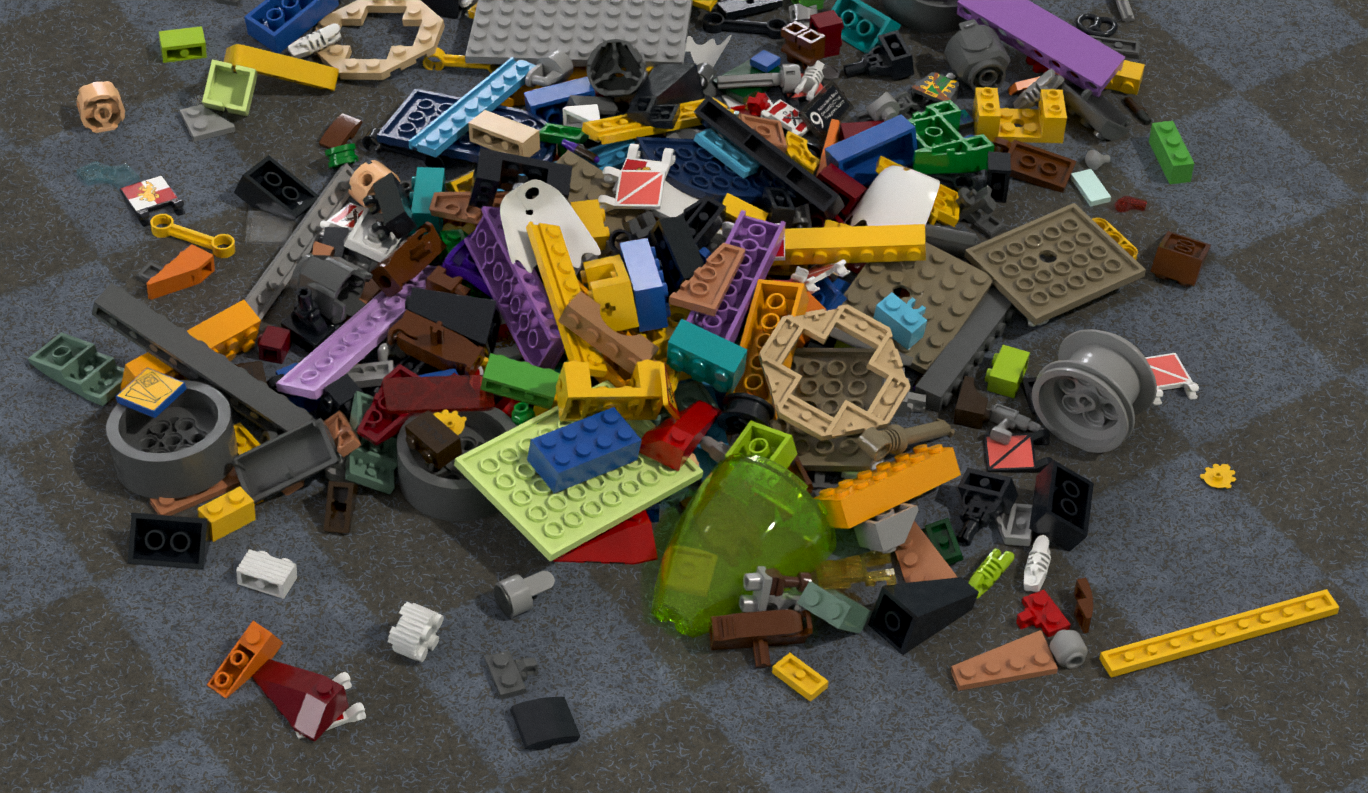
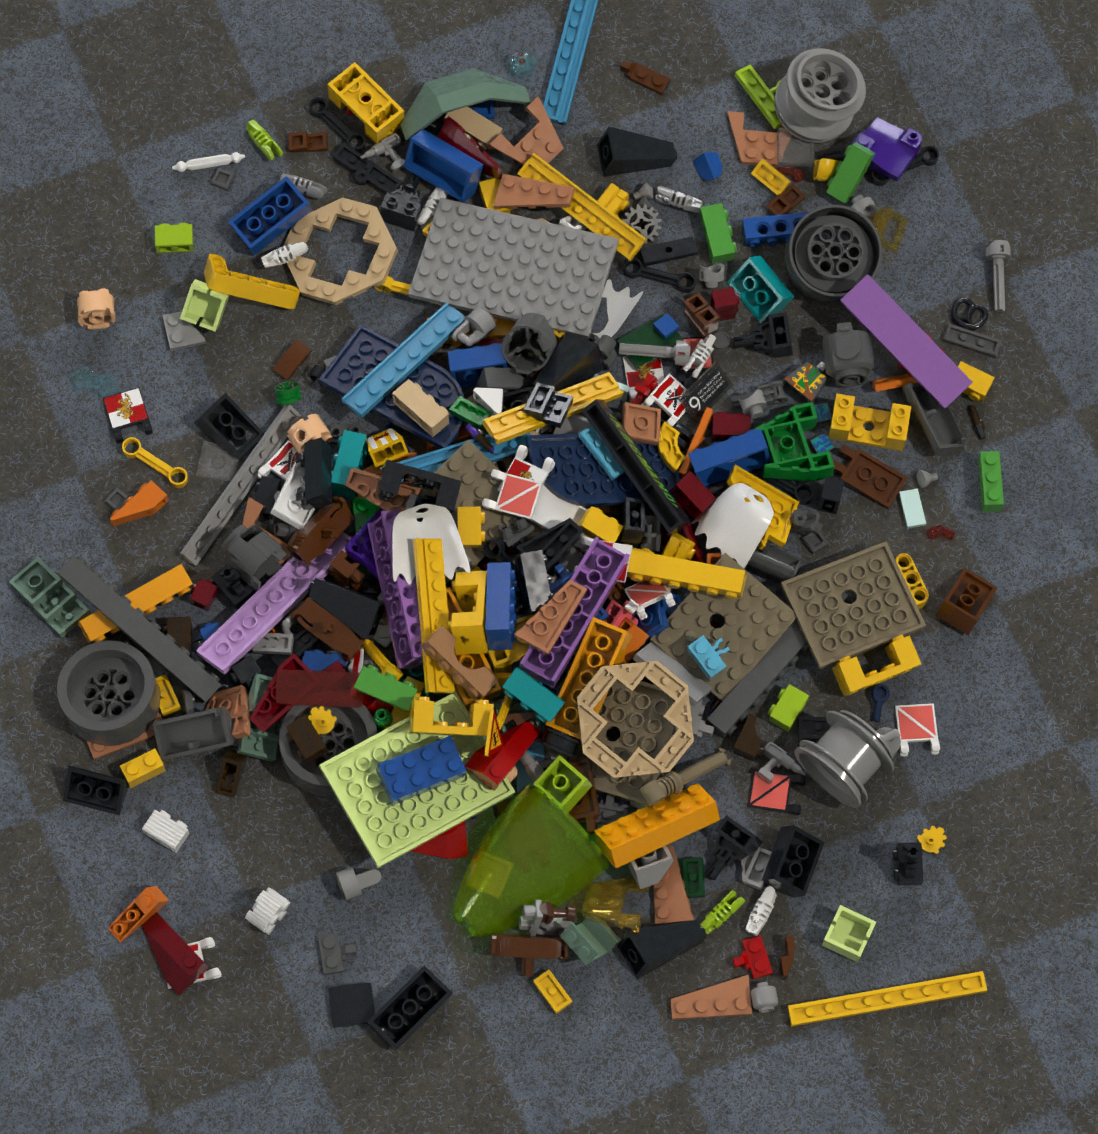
camera: 10 degrees right, 25 degrees up
(151, 392) = (95, 654): tile -> none
(620, 712) = (409, 1008): none -> black brick
(690, 393) = (518, 718): none -> reddish brown slope
(1031, 95) = (898, 396): light grey hinge -> none
(1123, 306) = (902, 659): none -> yellow plate
(1152, 569) = (848, 933): none -> yellowish green piece
(1200, 493) = (909, 863): none -> black brick

